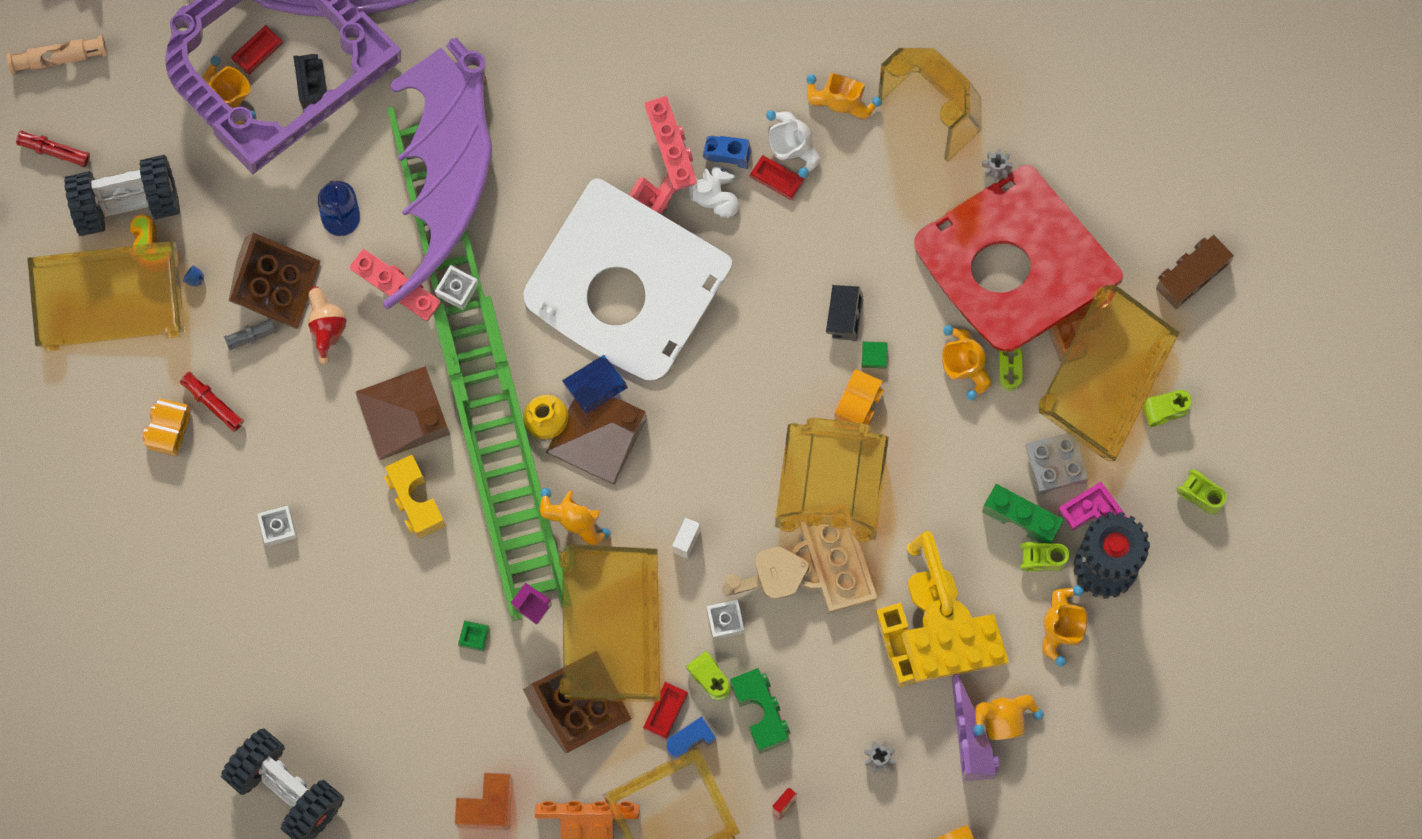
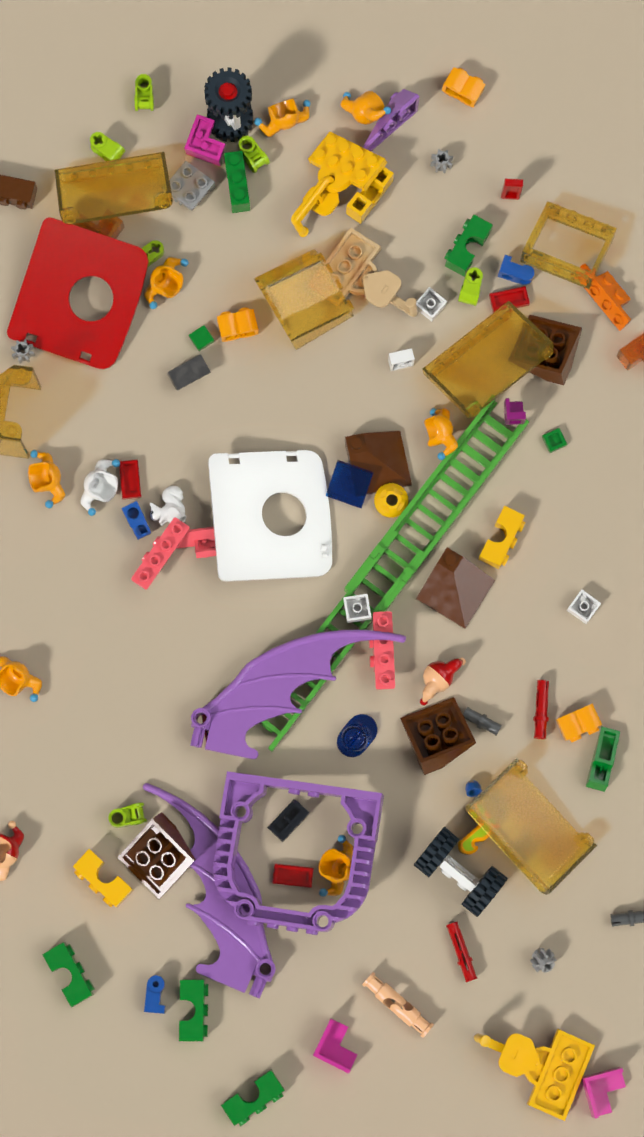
camera: 135 degrees left, 5 degrees up
(113, 424) = (603, 759): none -> green slope

